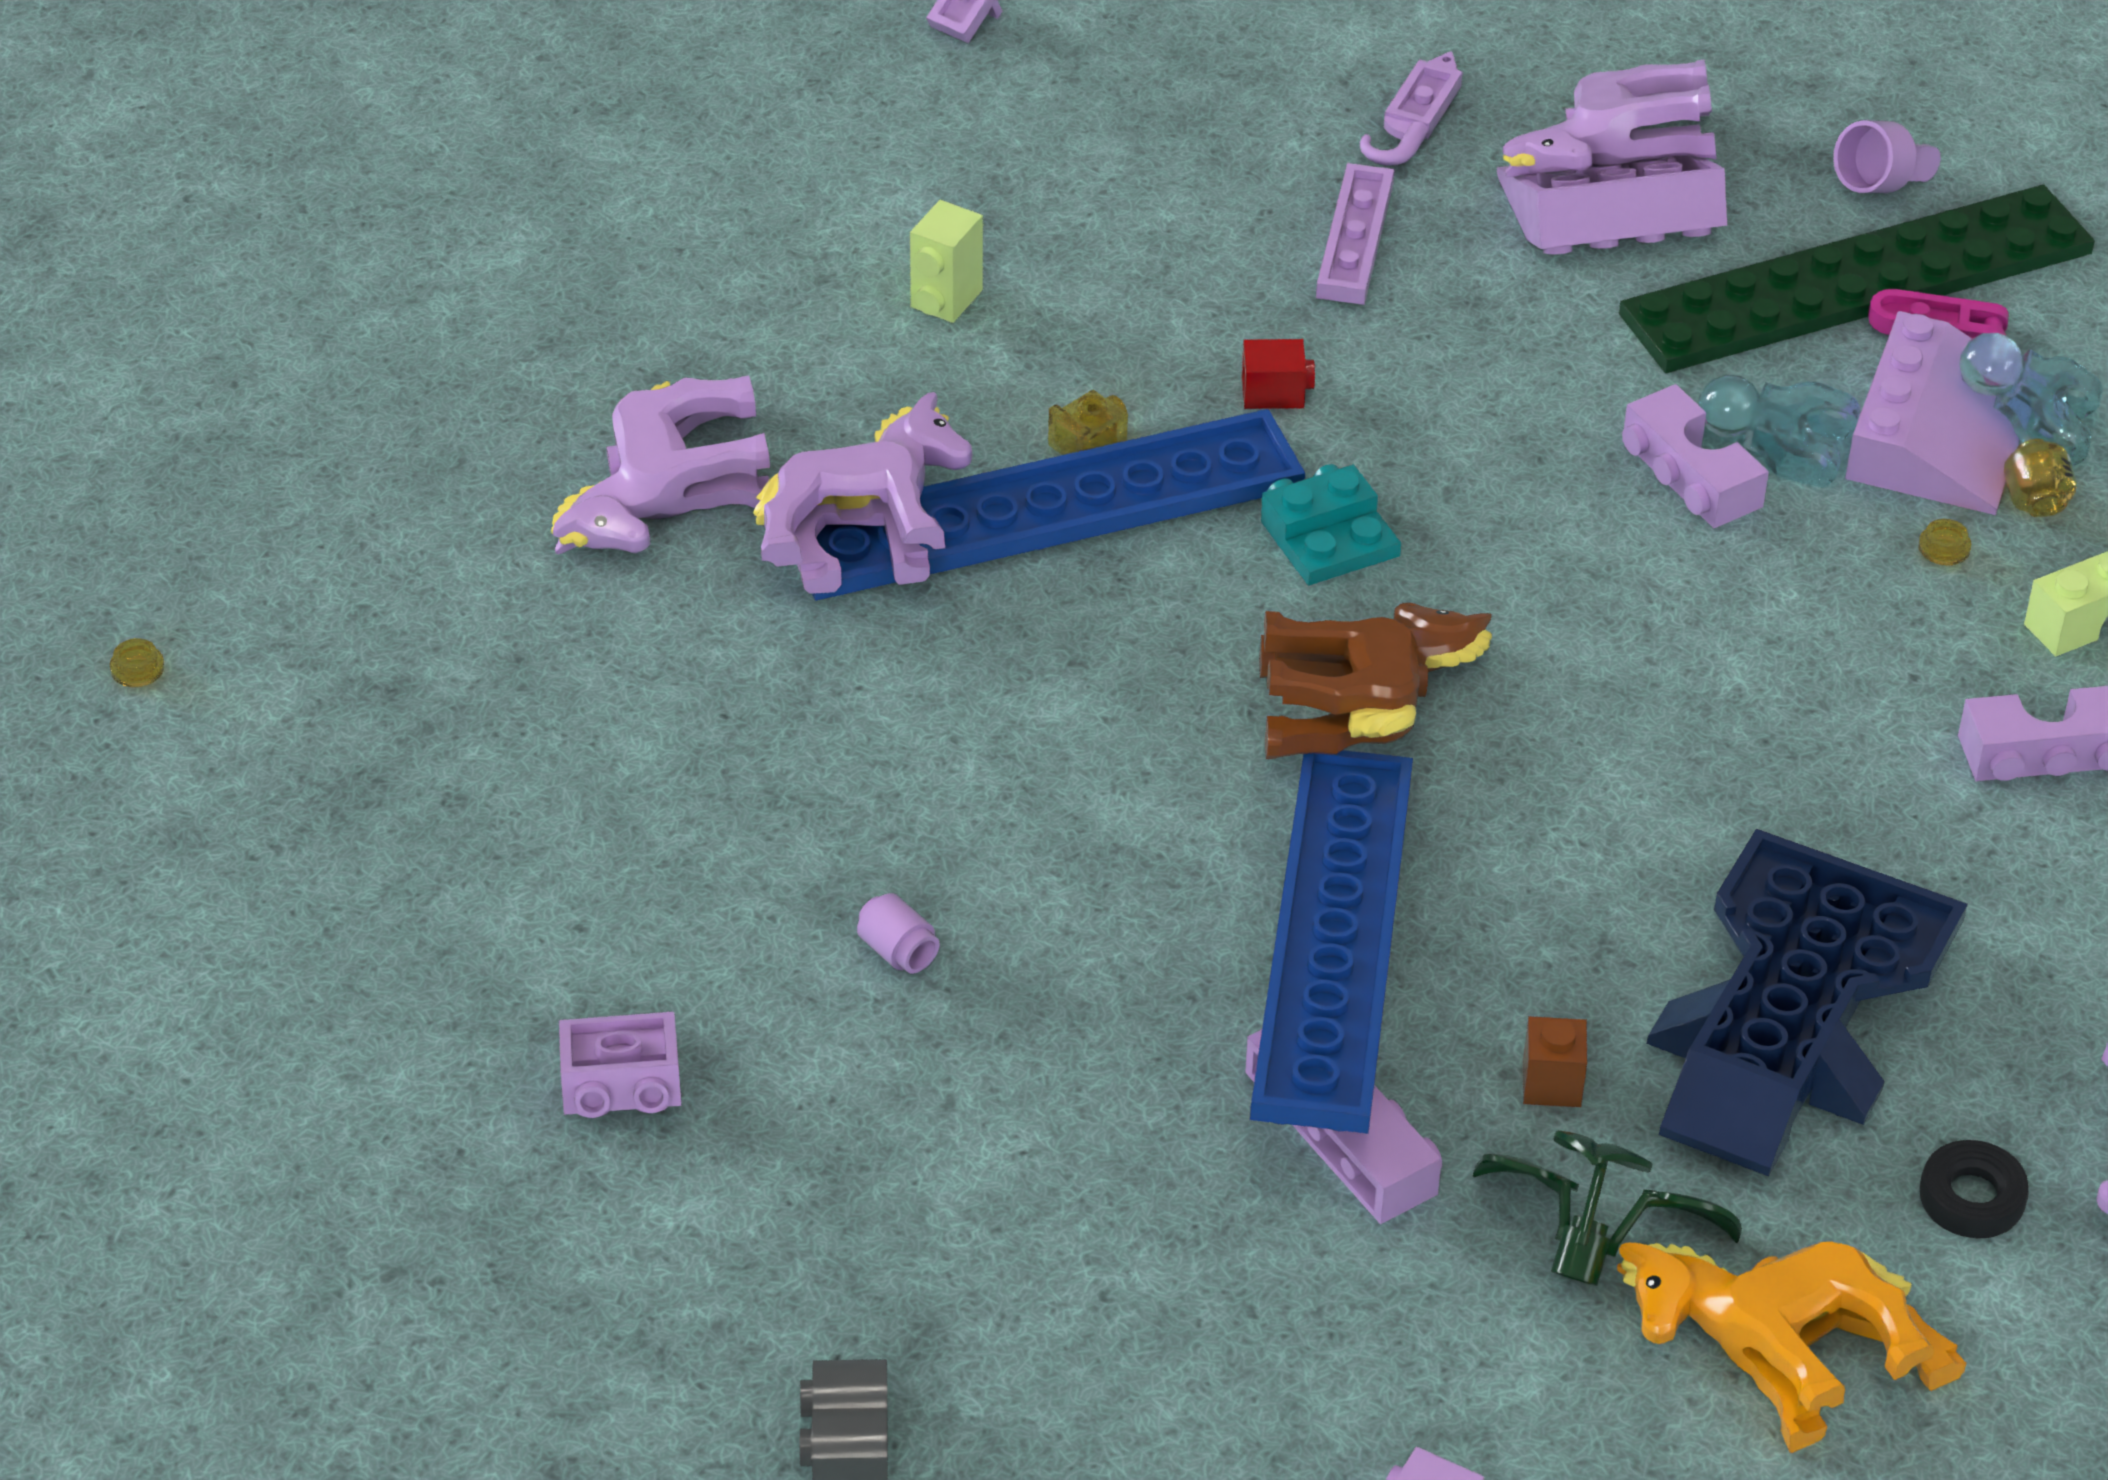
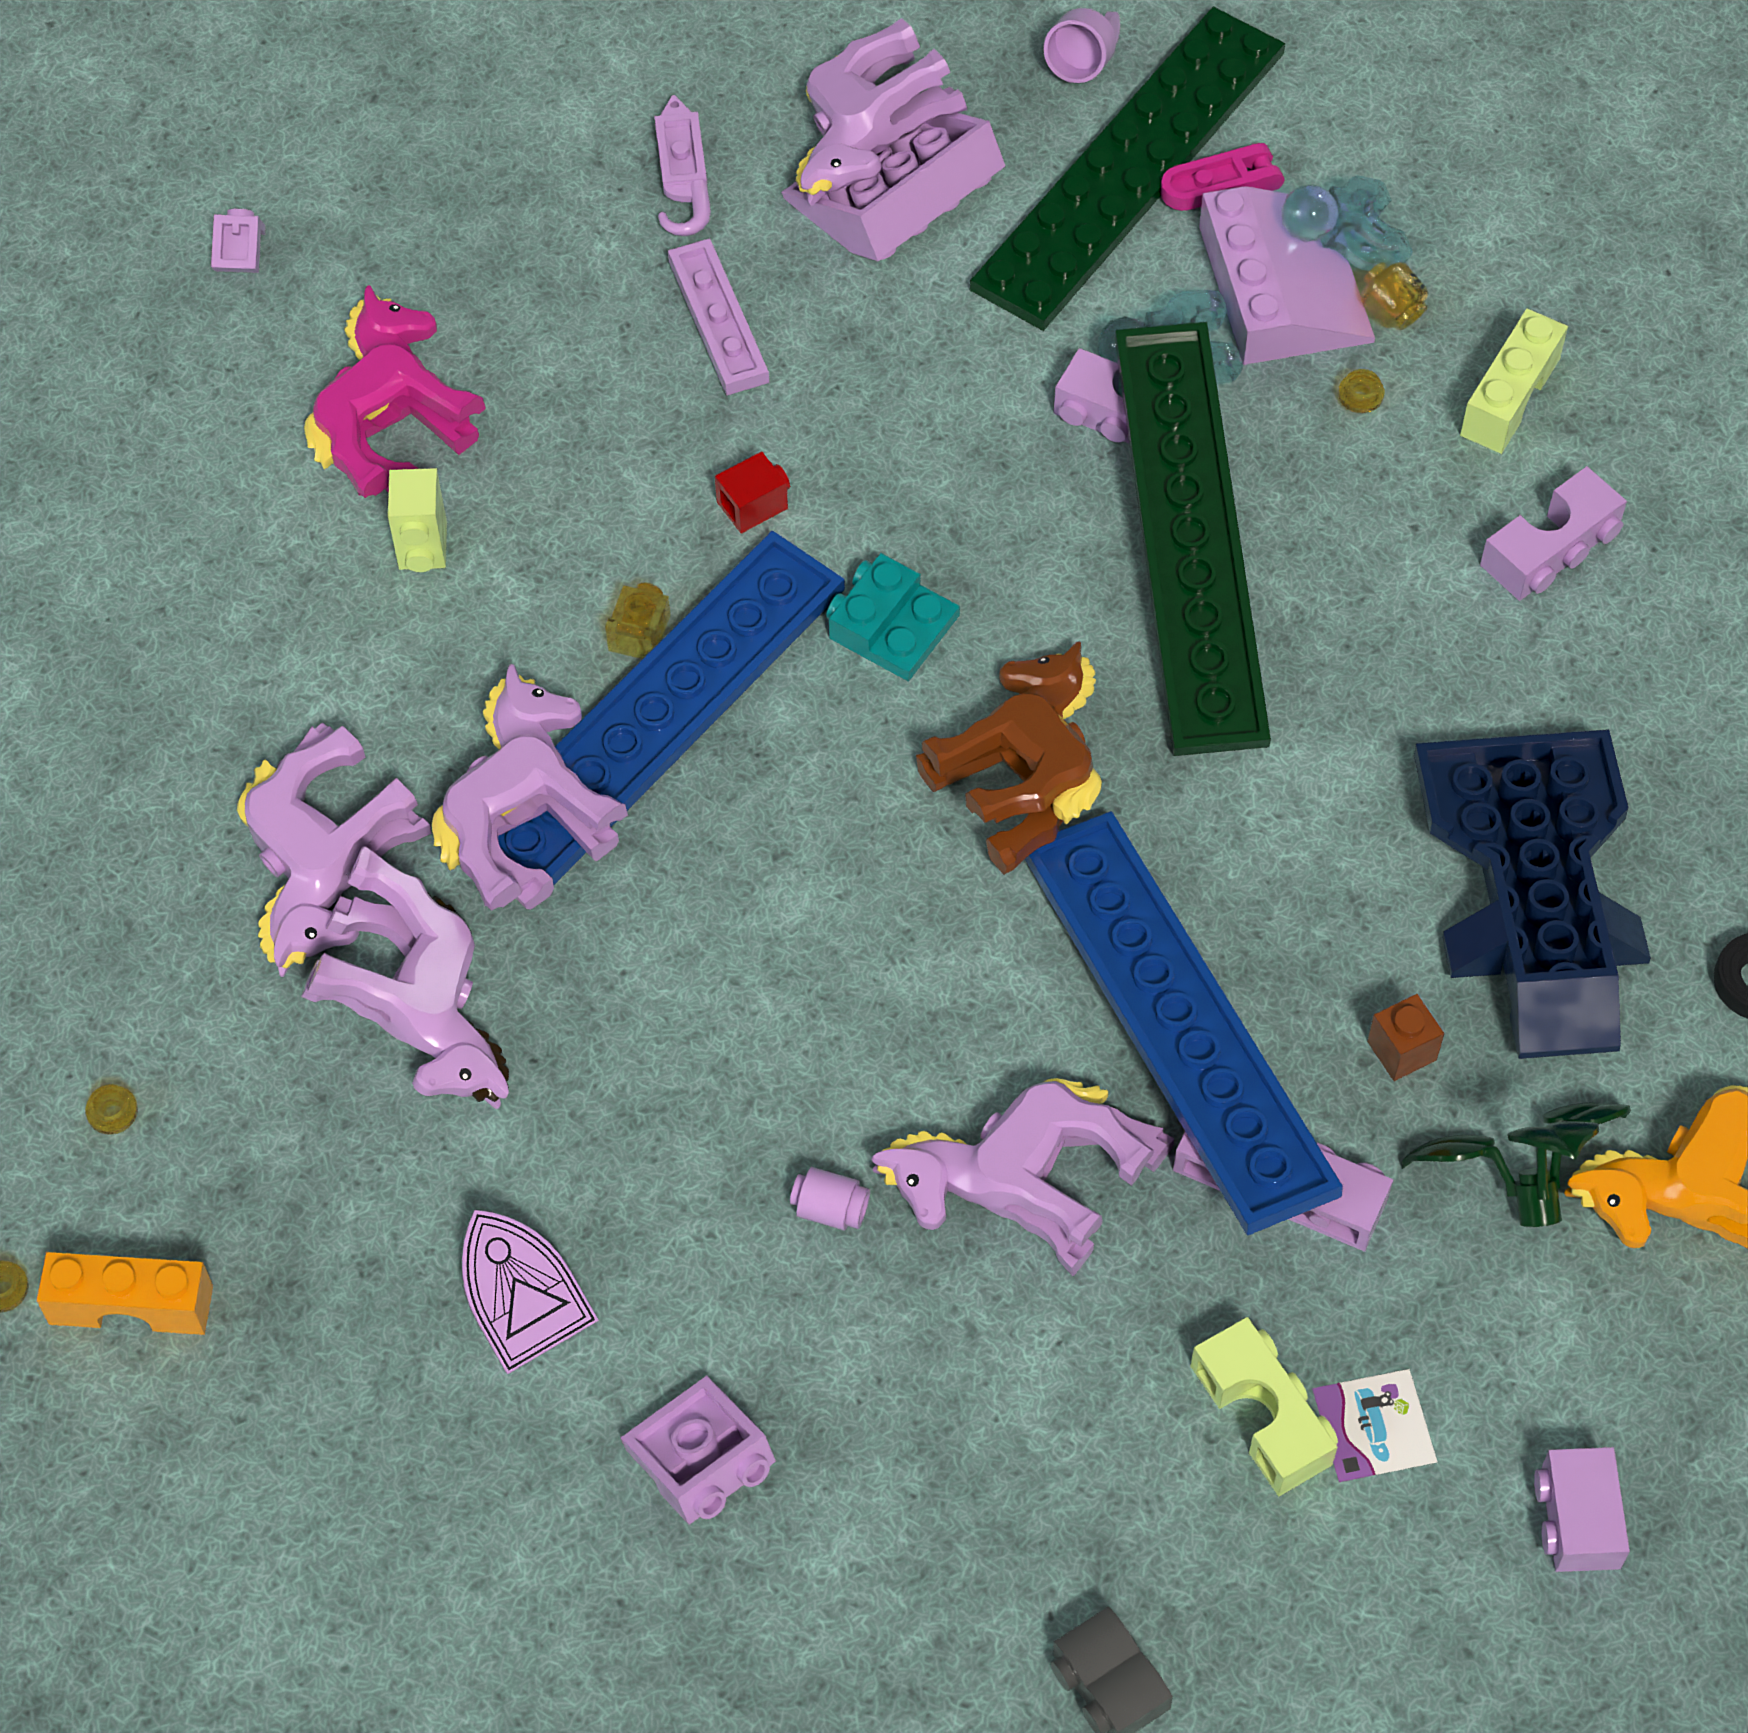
camera: 30 degrees left, 15 degrees up
(263, 726) = (163, 1293): none -> light orange arch
(332, 580) = (109, 1096): none -> clear yellow plate
(563, 867) = (519, 1289): none -> lavender shield
(660, 605) = (427, 988): none -> lavender animal
(1000, 162) = (382, 391): none -> dark pink animal
(1098, 978) = (1016, 1157): none -> lavender animal
(1173, 1323) = (1246, 1365): none -> yellowish green arch
(1274, 1366) = (1376, 1425): none -> sticker
(1662, 577) = (1191, 540): none -> dark green plate

